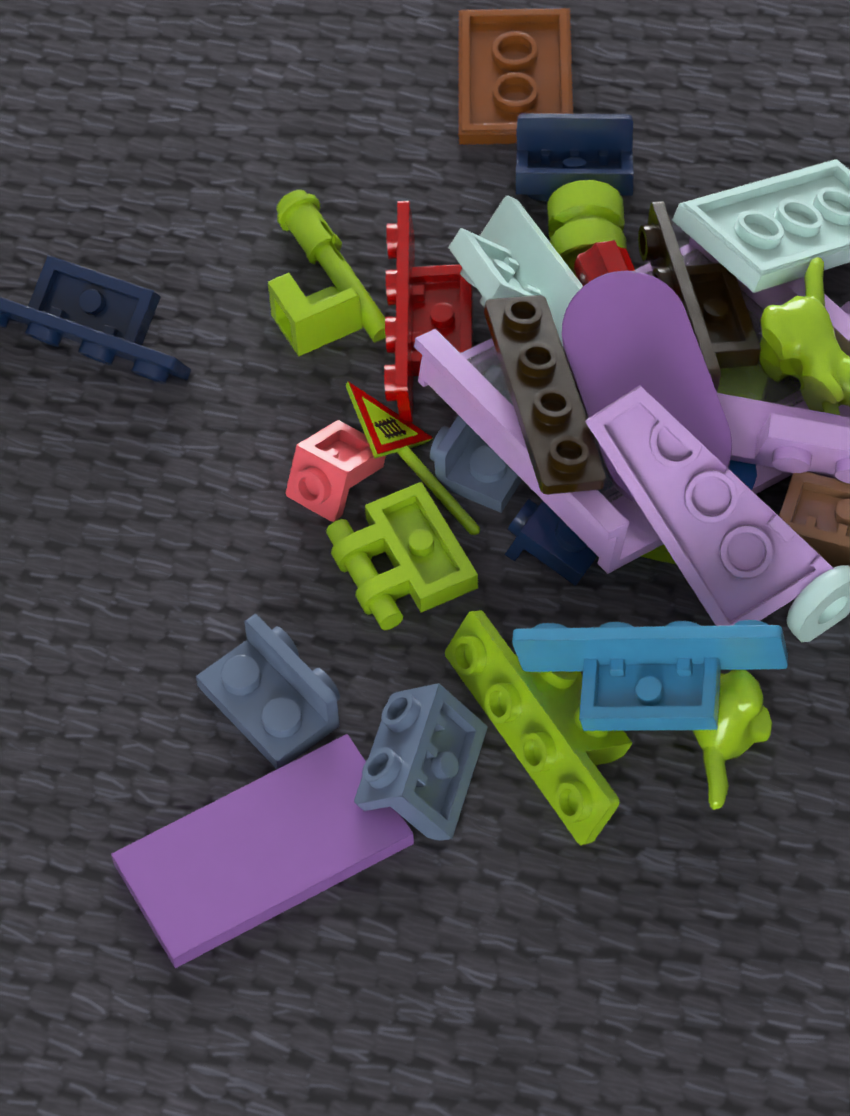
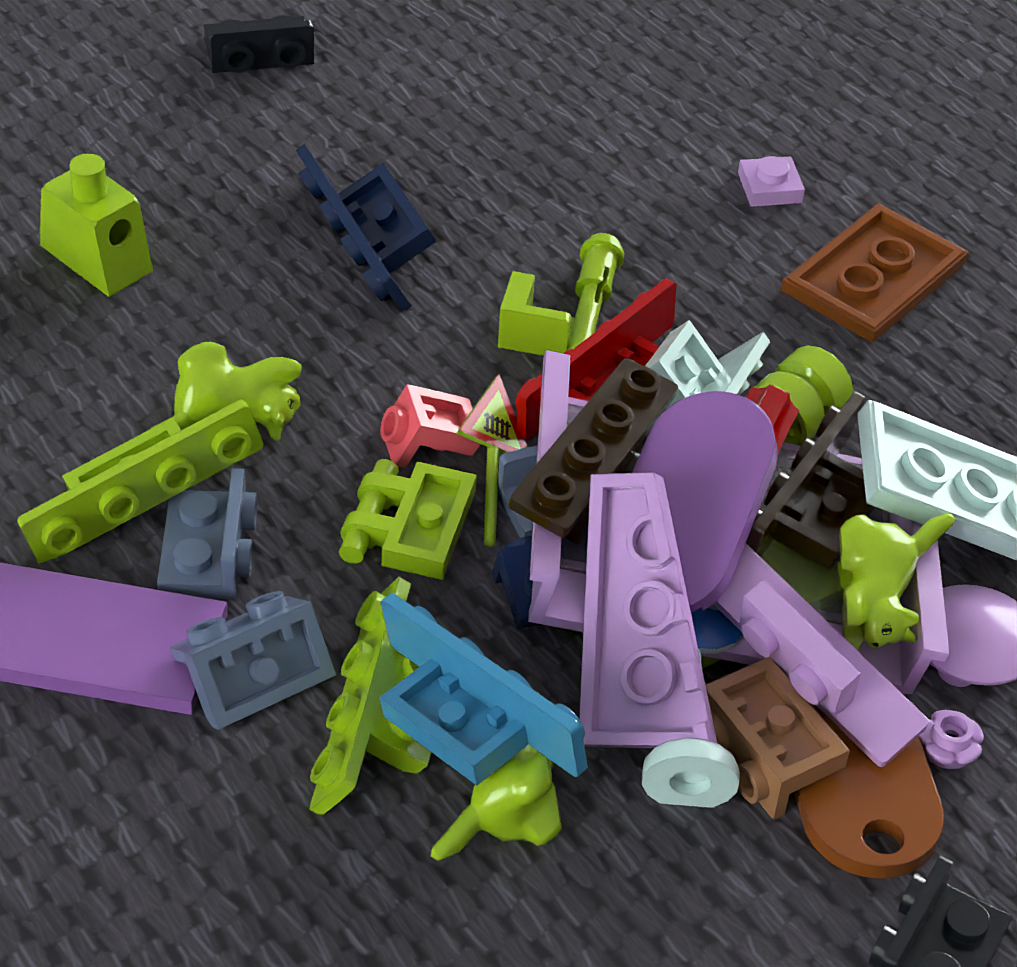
camera: 35 degrees right, 10 degrees down
(142, 564) = (212, 382): none -> lime animal
(164, 684) = (138, 478): none -> lime bracket
(353, 47) = (771, 181): none -> lavender plate
(573, 148) = (864, 340): dark blue bracket -> none

